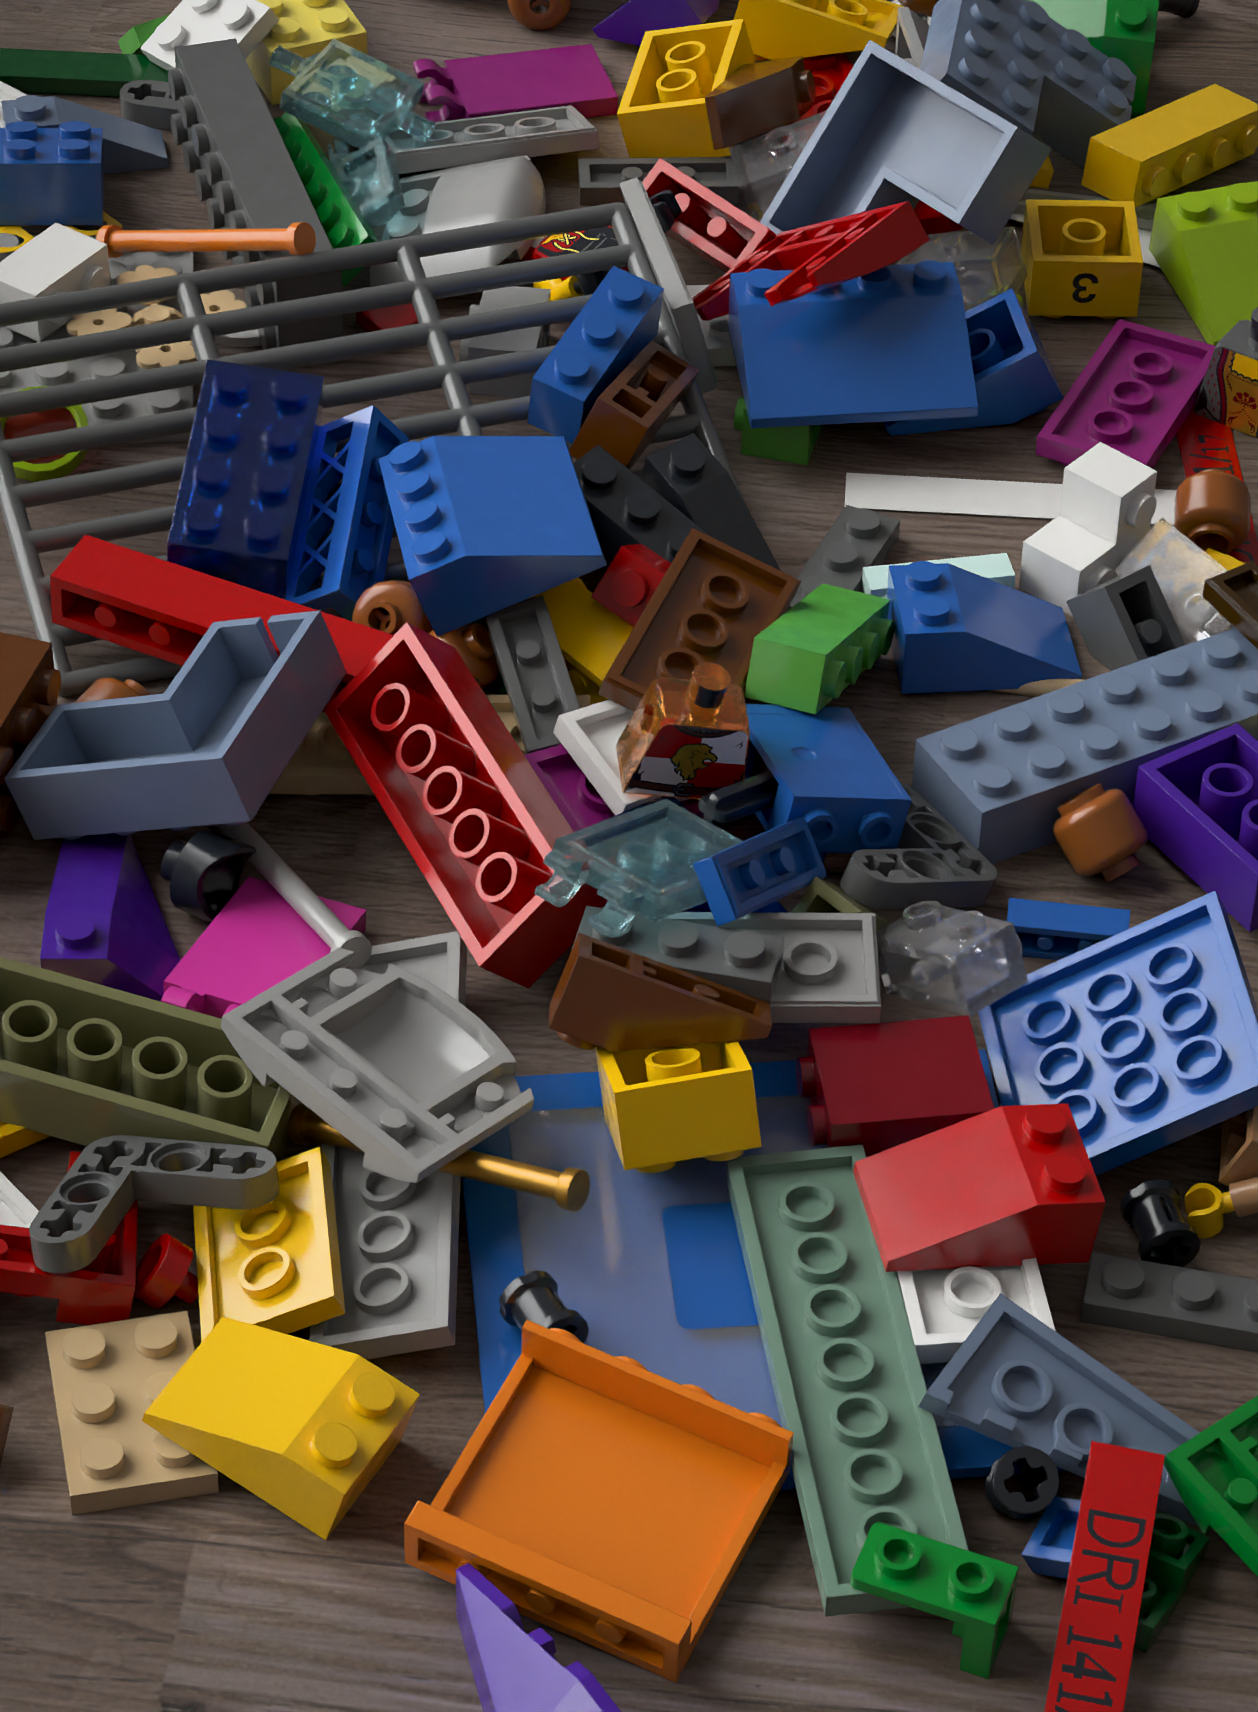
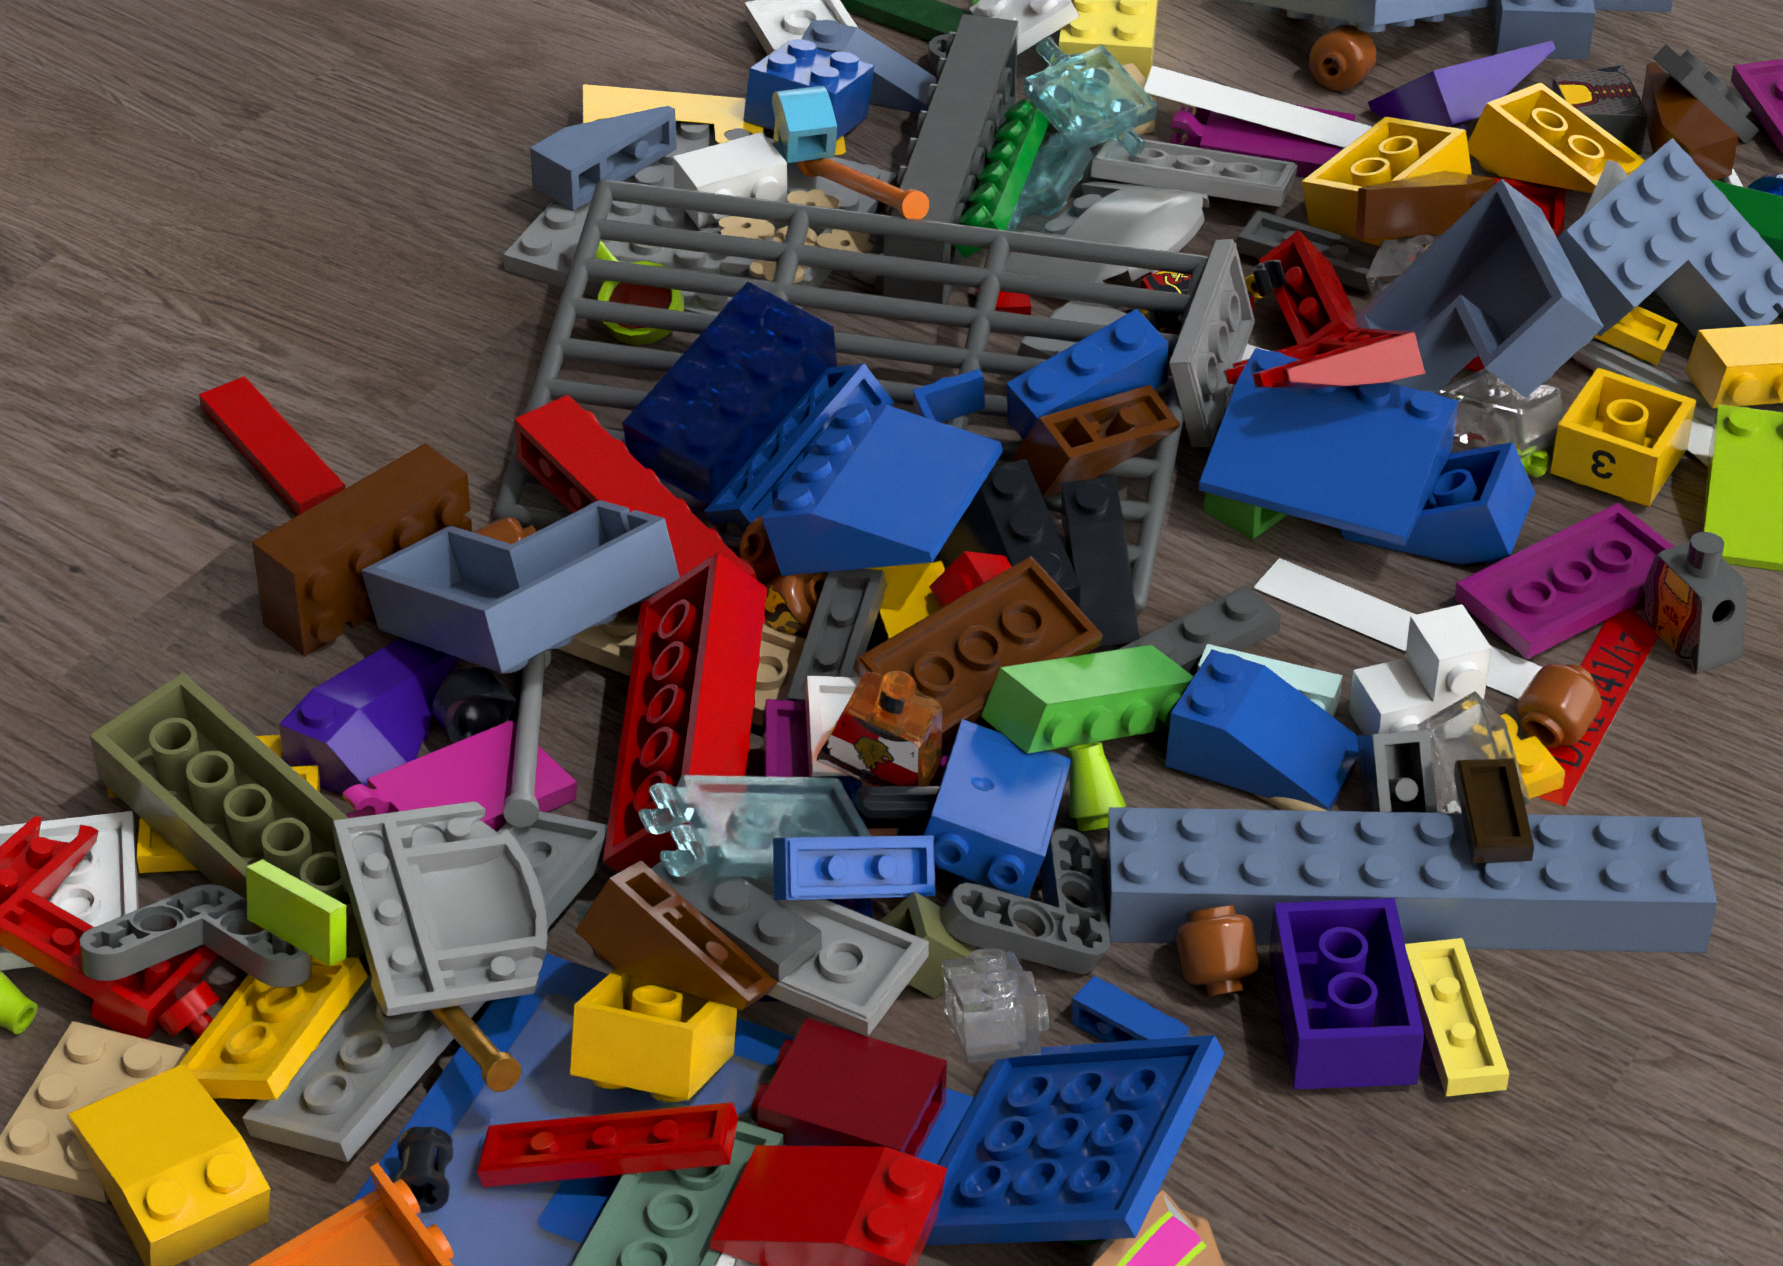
camera: 30 degrees right, 0 degrees up
(100, 198) = (804, 124): none -> medium azure brick
(245, 1121) = (296, 912): none -> lime tile
(470, 411) = (950, 397): none -> blue bracket
(511, 63) = (1253, 107): none -> white sticker
(710, 1220) = (608, 1145): none -> red tile
(878, 724) = (1091, 787): none -> lime cone

